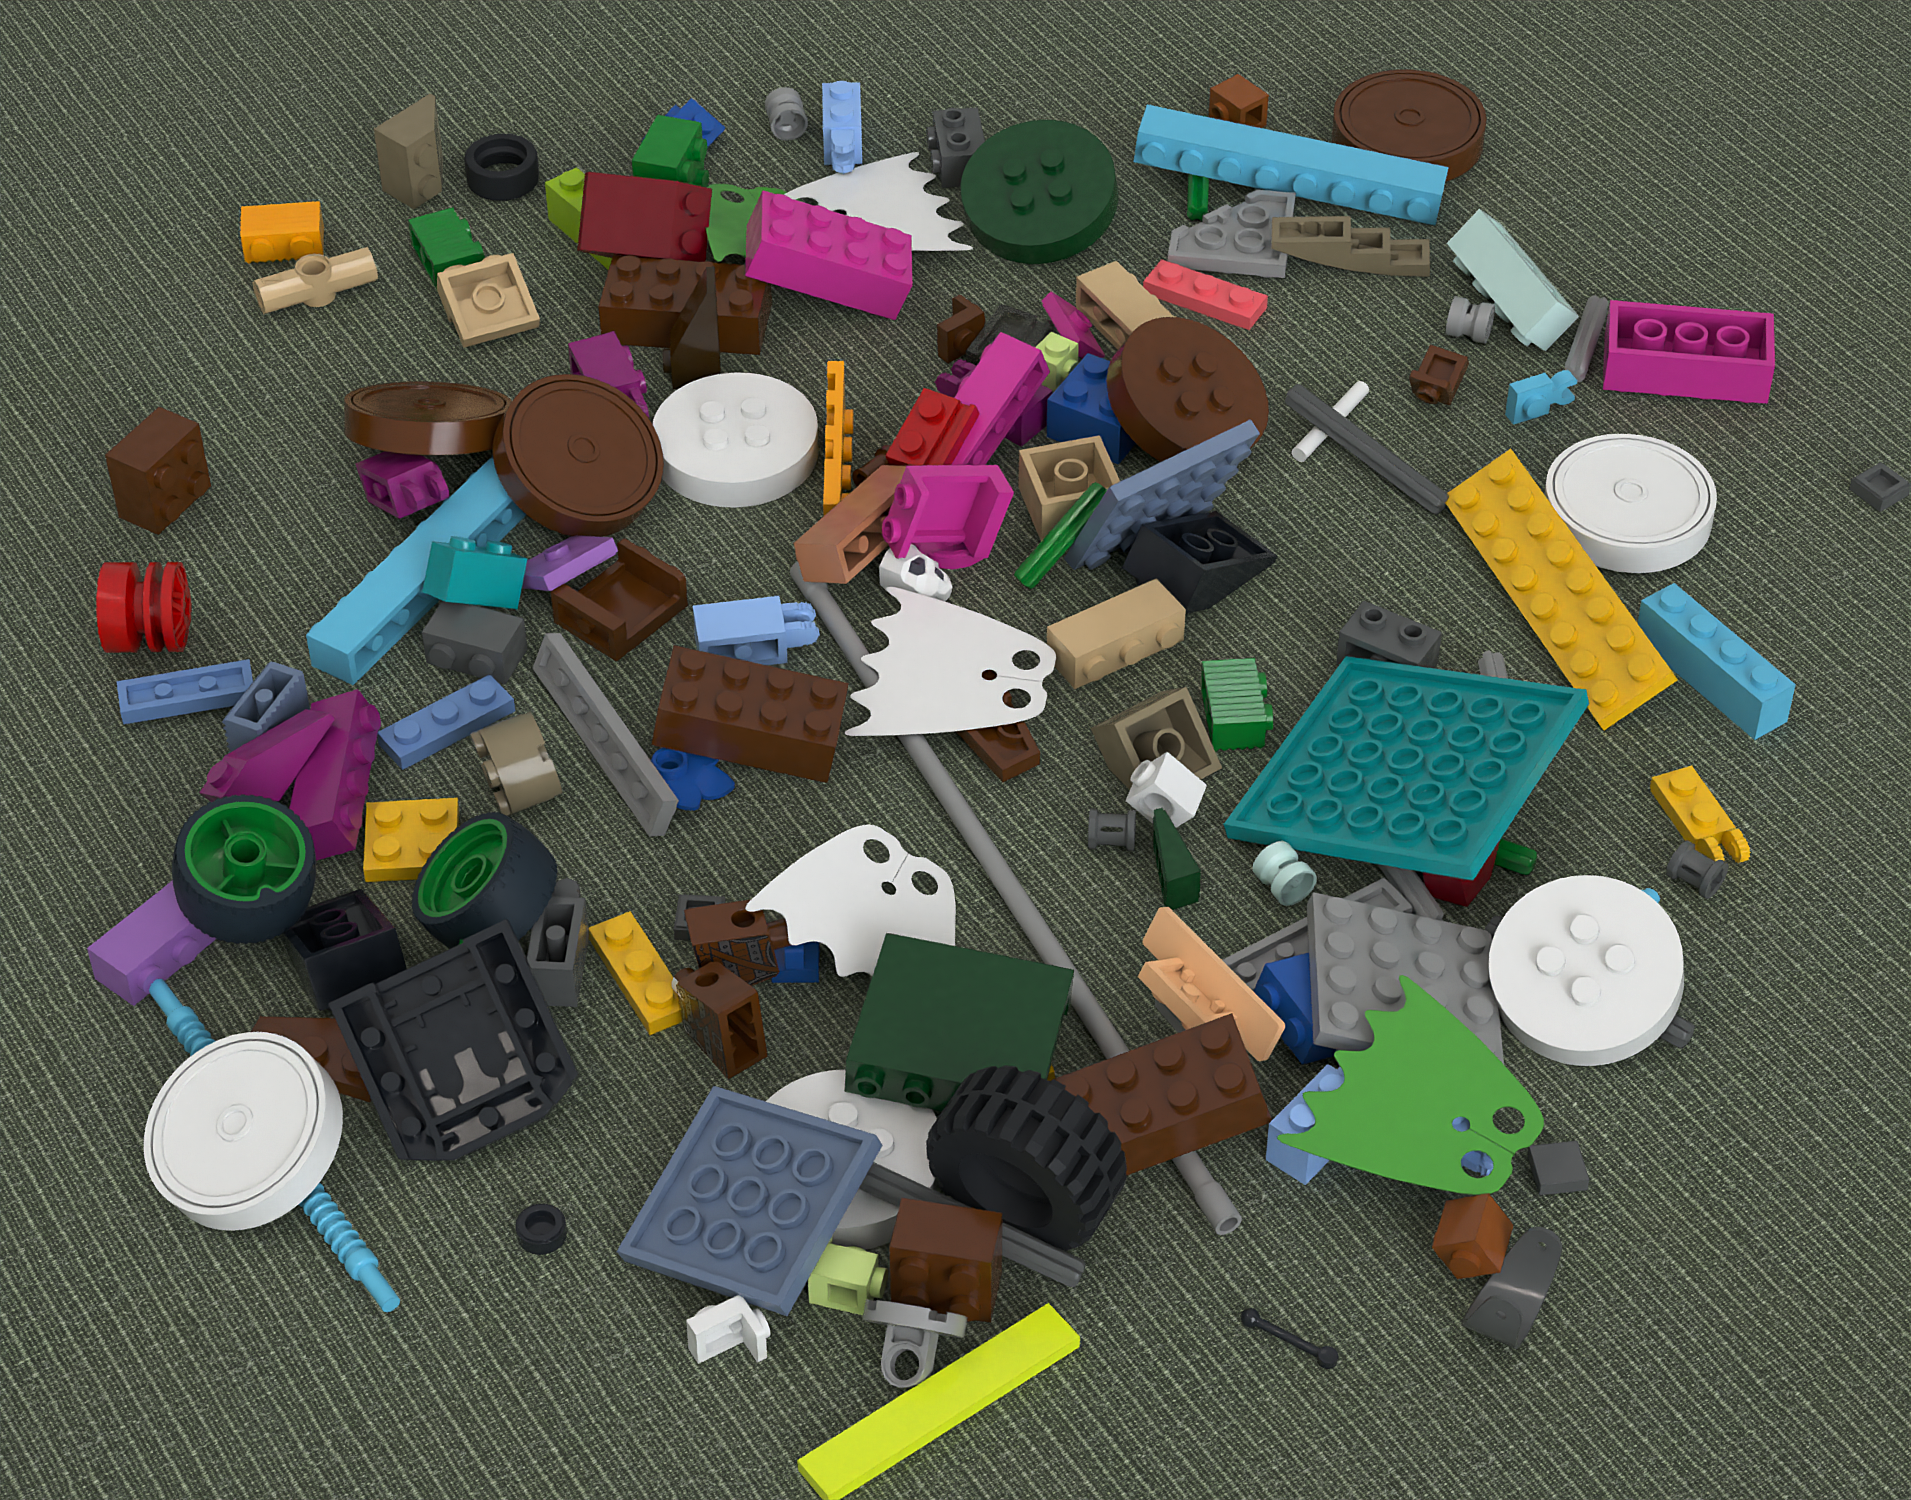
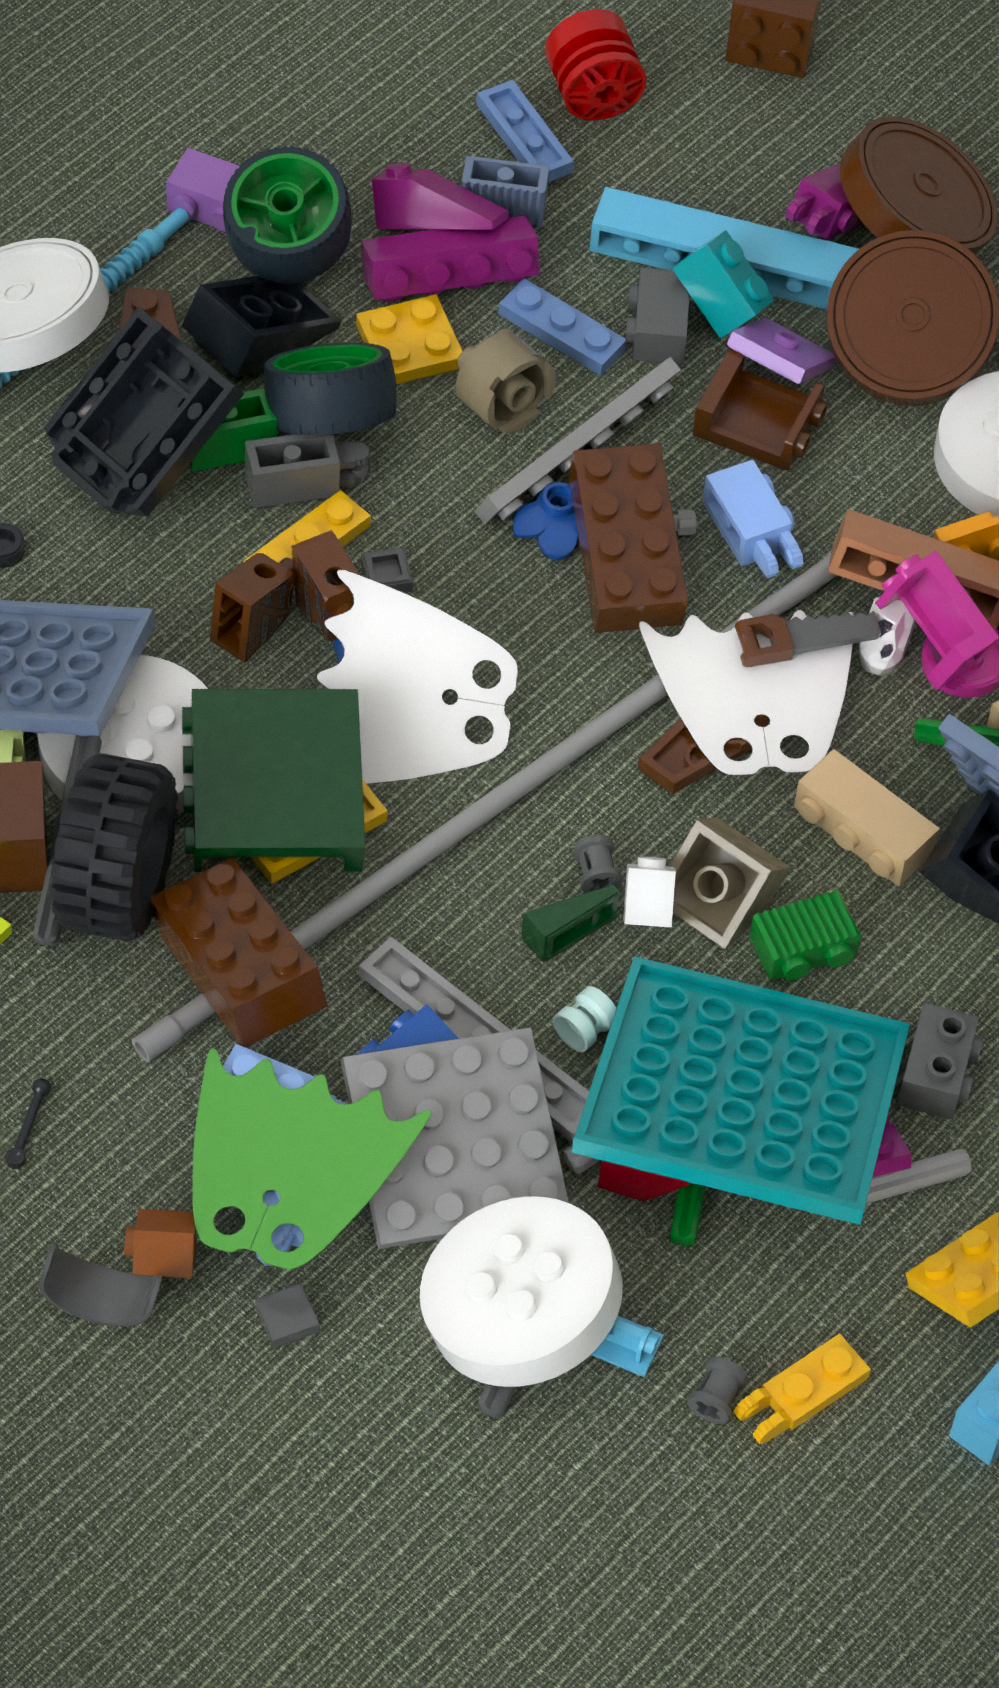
camera: 70 degrees right, 10 degrees up
(908, 620) = (801, 635): none -> piece
(1202, 987) = (382, 958): light nougat bracket -> none

